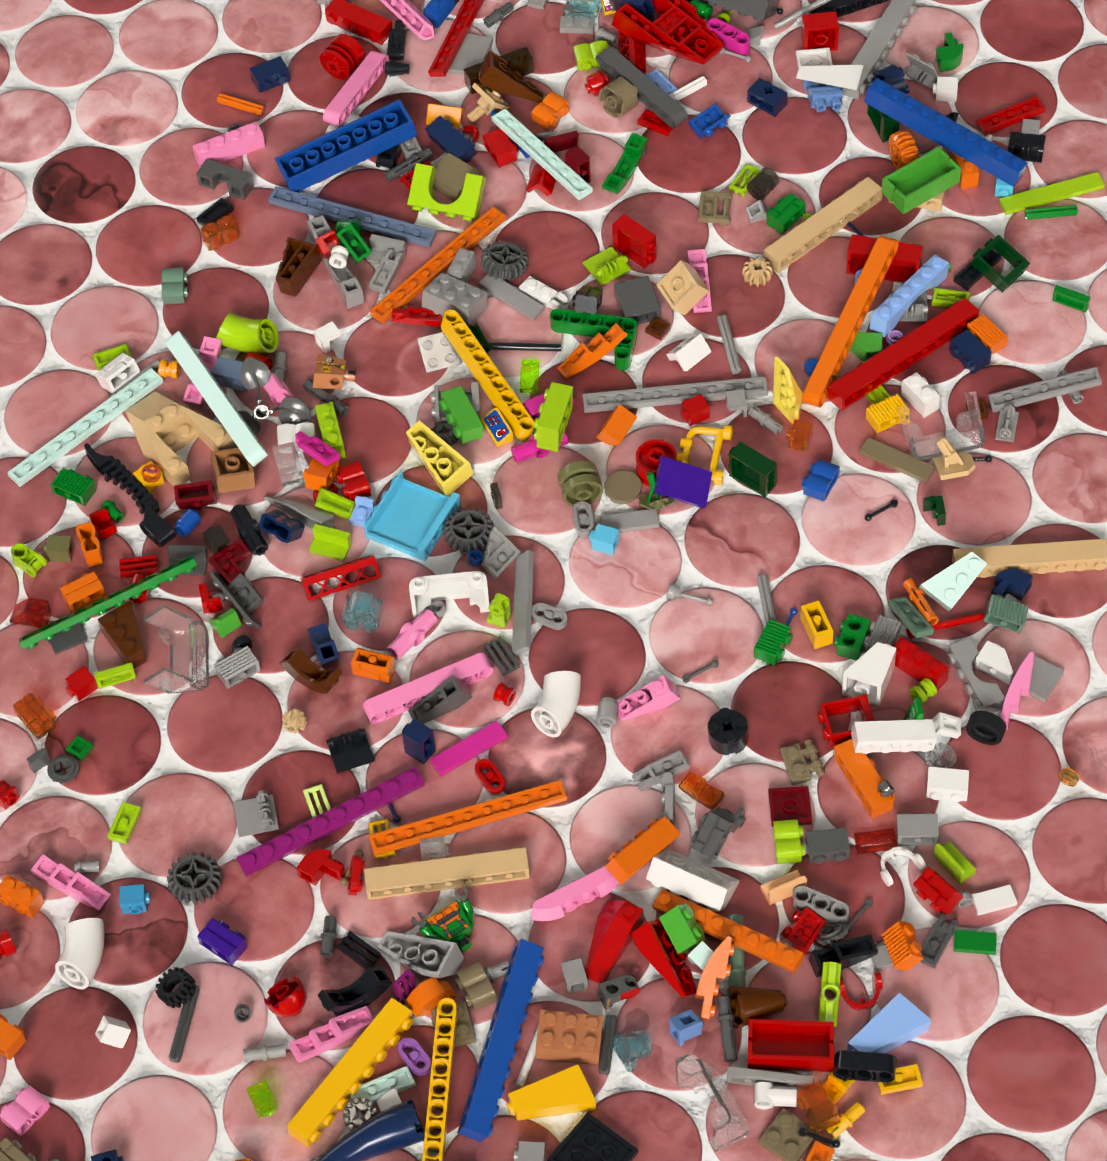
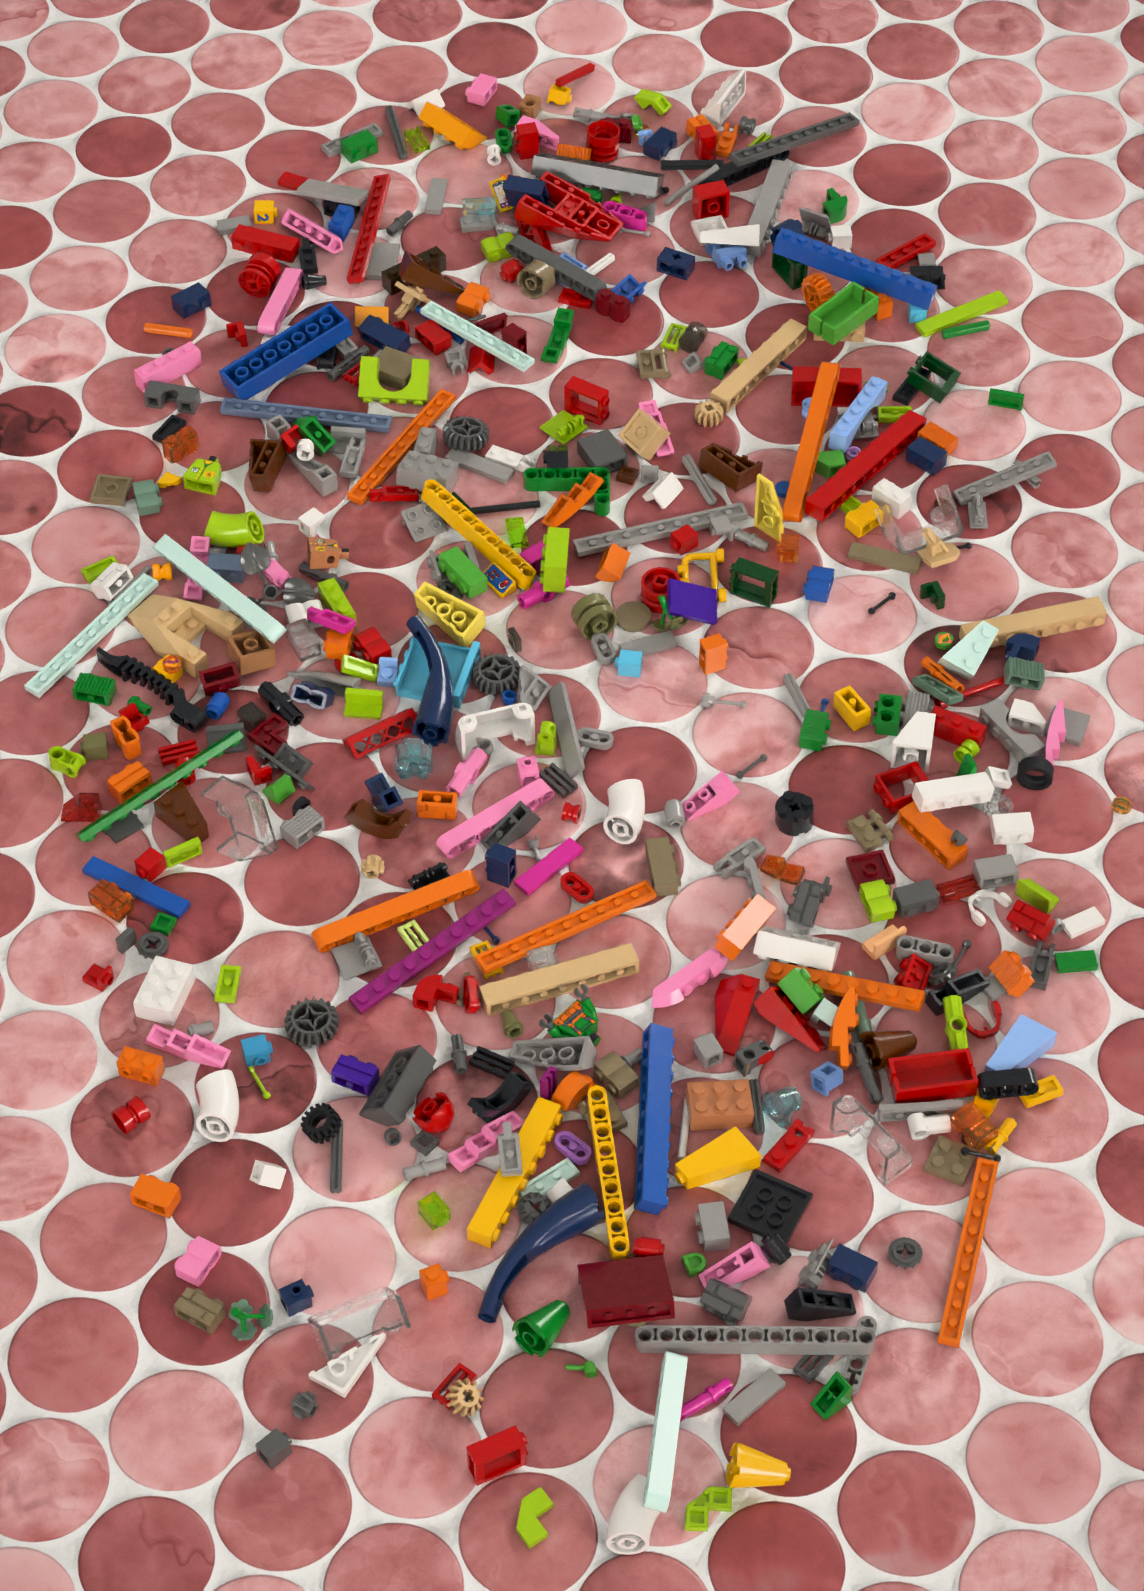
camera: 15 degrees left, 5 degrees down
(61, 820) = (164, 990): none -> white brick
(63, 705) = (137, 887): none -> blue tile
(133, 947) = (266, 1095): none -> lime hinge
(142, 272) = (111, 490): none -> dark tan plate
(200, 268) = (169, 479): none -> yellow tile
(235, 270) = (203, 476): none -> lime torso
(261, 961) = (398, 1086): none -> dark grey slope
(272, 1024) = (424, 1142): none -> dark grey tile
(305, 772) = (396, 910): none -> orange beam
(306, 114) = (238, 331): none -> red bracket
(346, 1052) = (509, 1152): none -> light grey hinge
(387, 913) = (511, 1025): none -> olive cone
(398, 559) = (436, 707): none -> dark blue brick
(460, 723) = (534, 844): none -> light grey hand
(472, 641) = (527, 770): none -> bright pink brick
(515, 176) = (455, 360): none -> light grey plate
(580, 768) = (662, 866): none -> dark tan brick
(629, 1092) = (788, 1146): none -> red plate
(679, 330) = (649, 473): none -> light grey tile
(689, 136) = (612, 305): none -> dark red brick
(690, 542) = (713, 653): none -> orange brick
(761, 336) = (729, 468): none -> reddish brown wedge
(934, 562) = (944, 640): none -> tile

